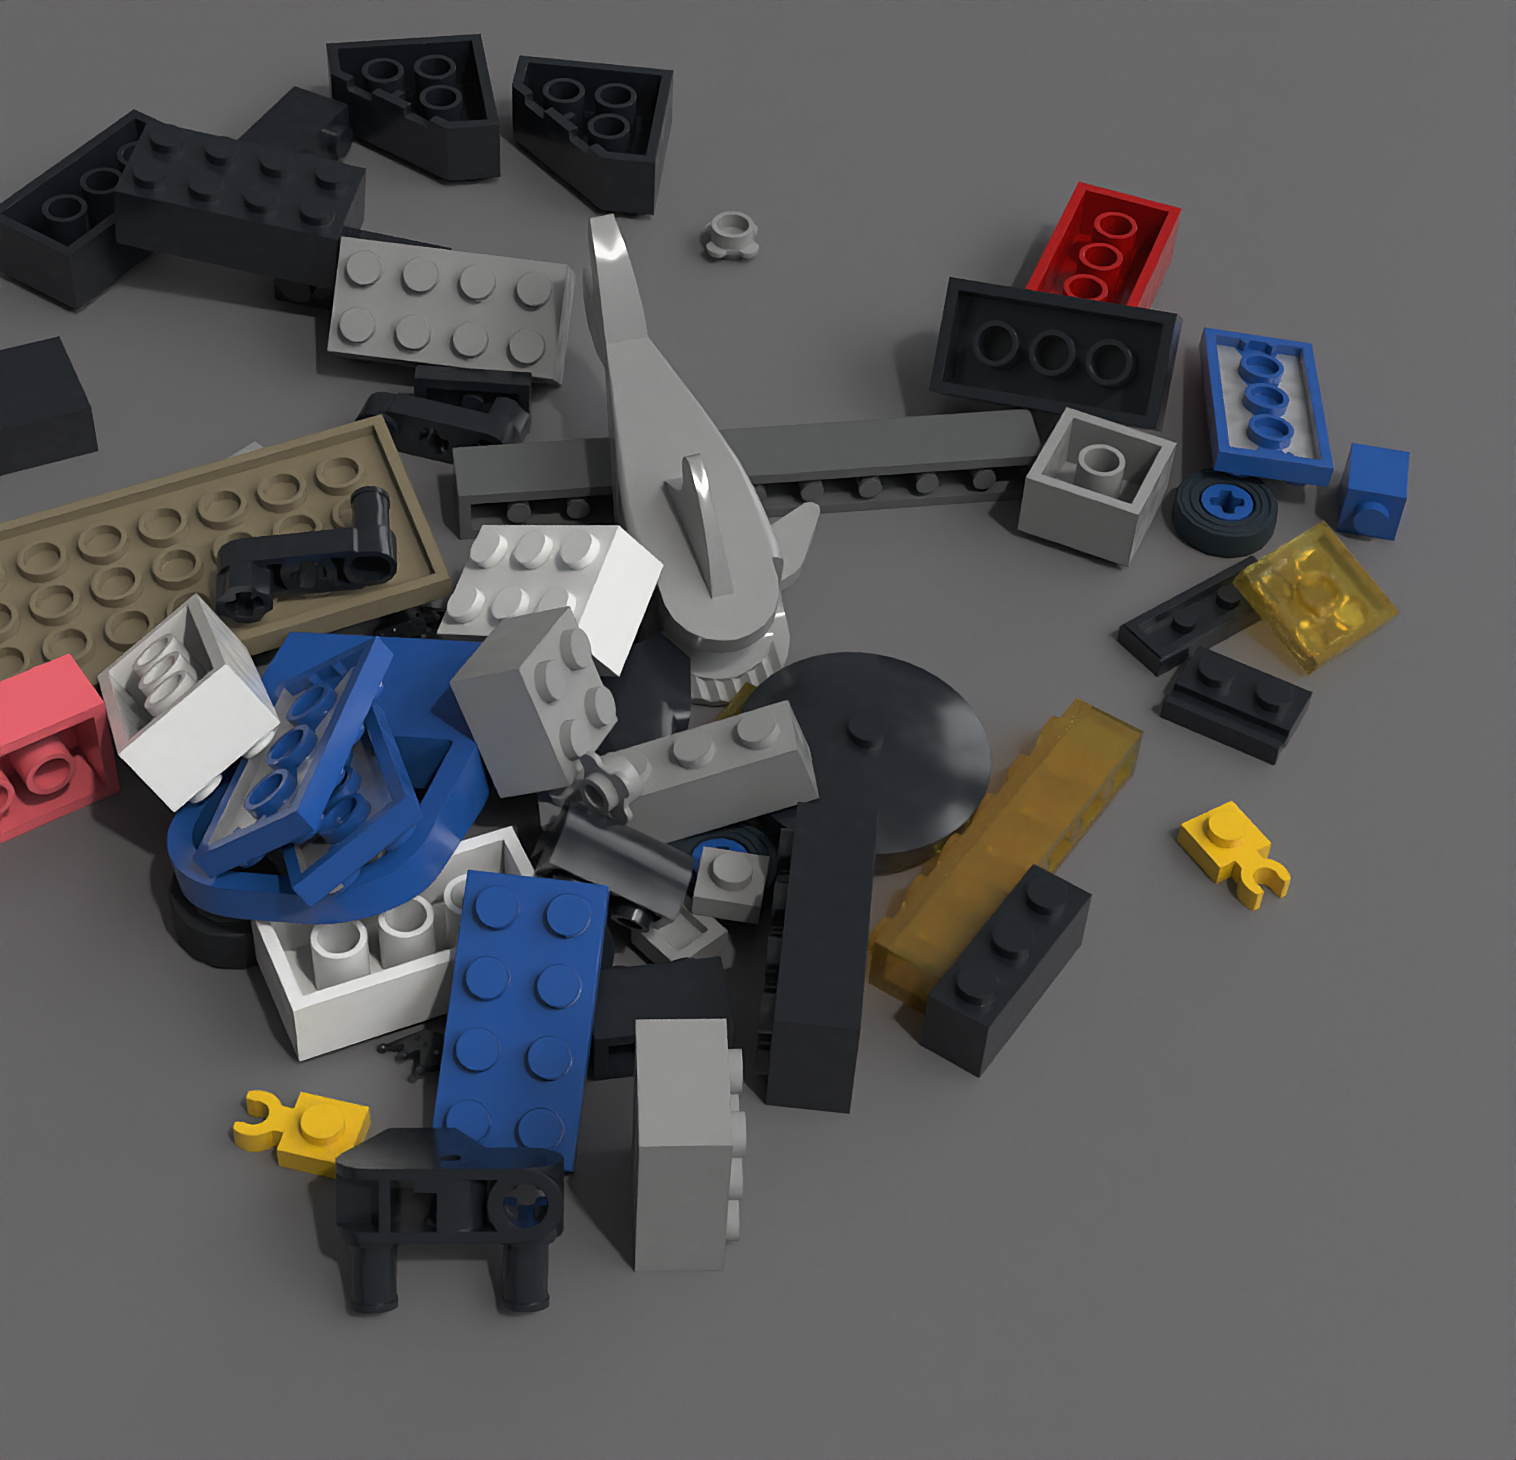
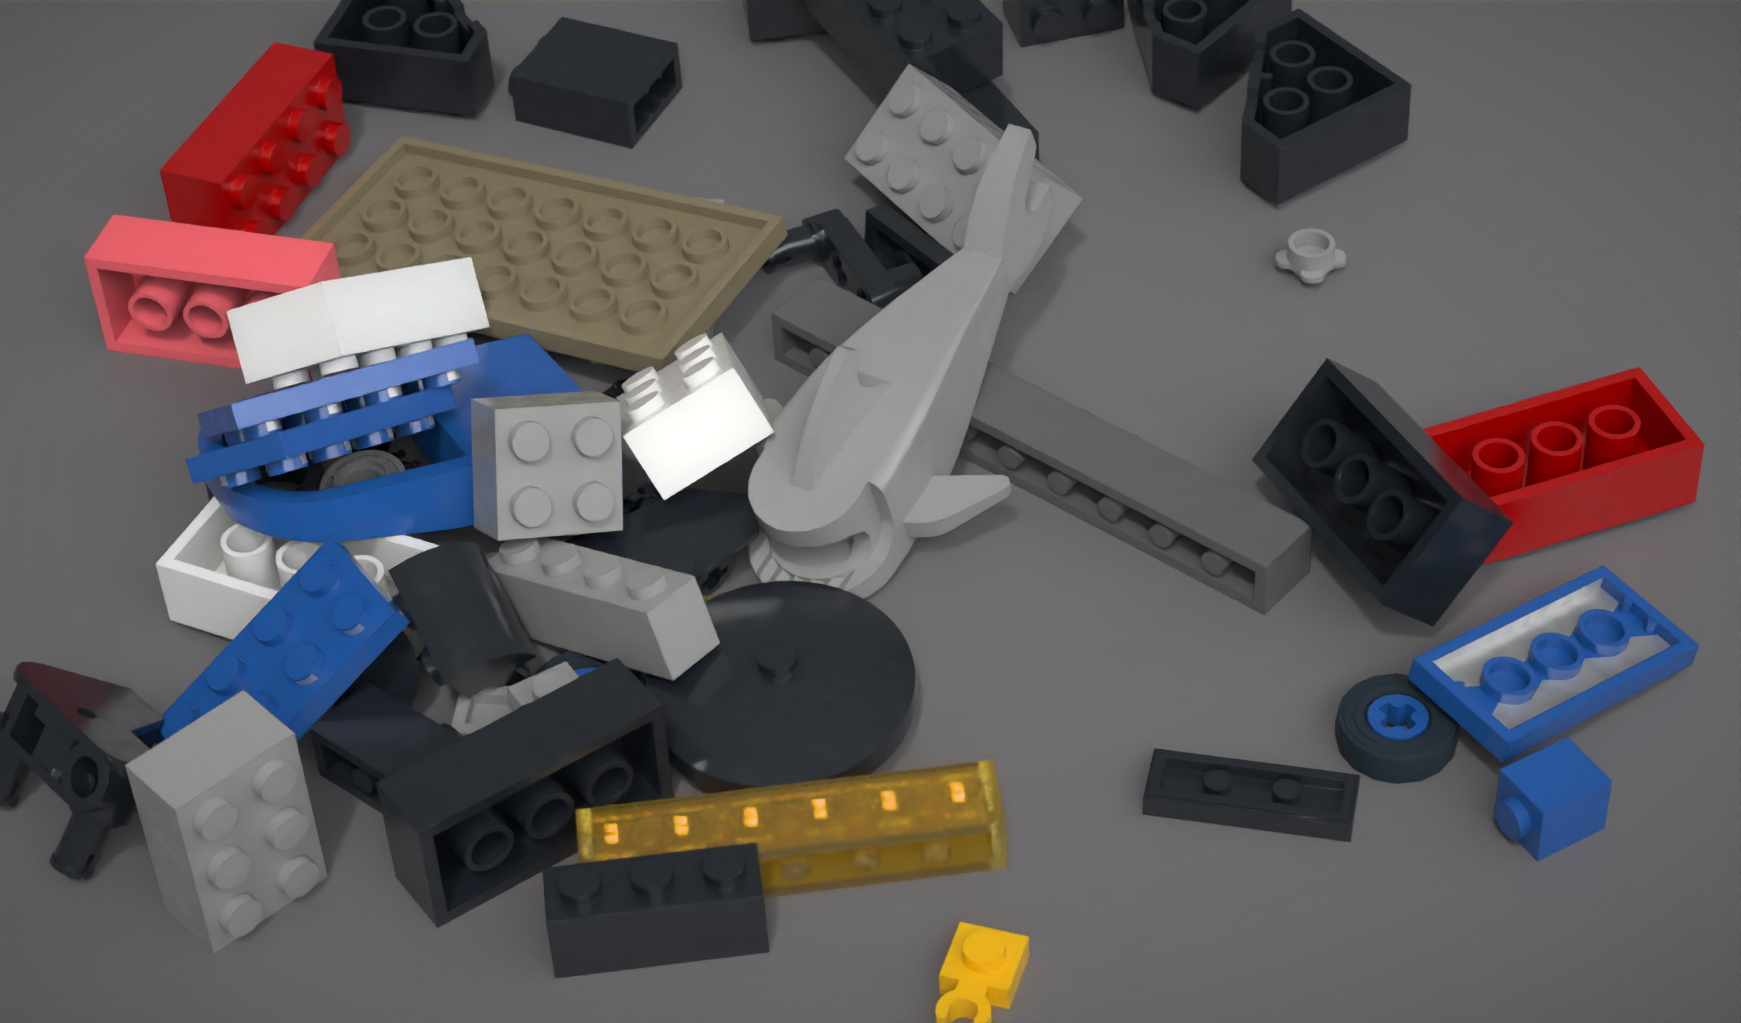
camera: 55 degrees right, 5 degrees down
(272, 566) = (579, 285): black beam -> none
(305, 1135) = (114, 658): yellow plate -> none
(610, 784) = (511, 554): light grey plate -> none
(1096, 486) = (1284, 624): light grey brick -> none
(1236, 705) = (1164, 878): black plate -> none
(1315, 597) = (1345, 839): clear yellow plate -> none

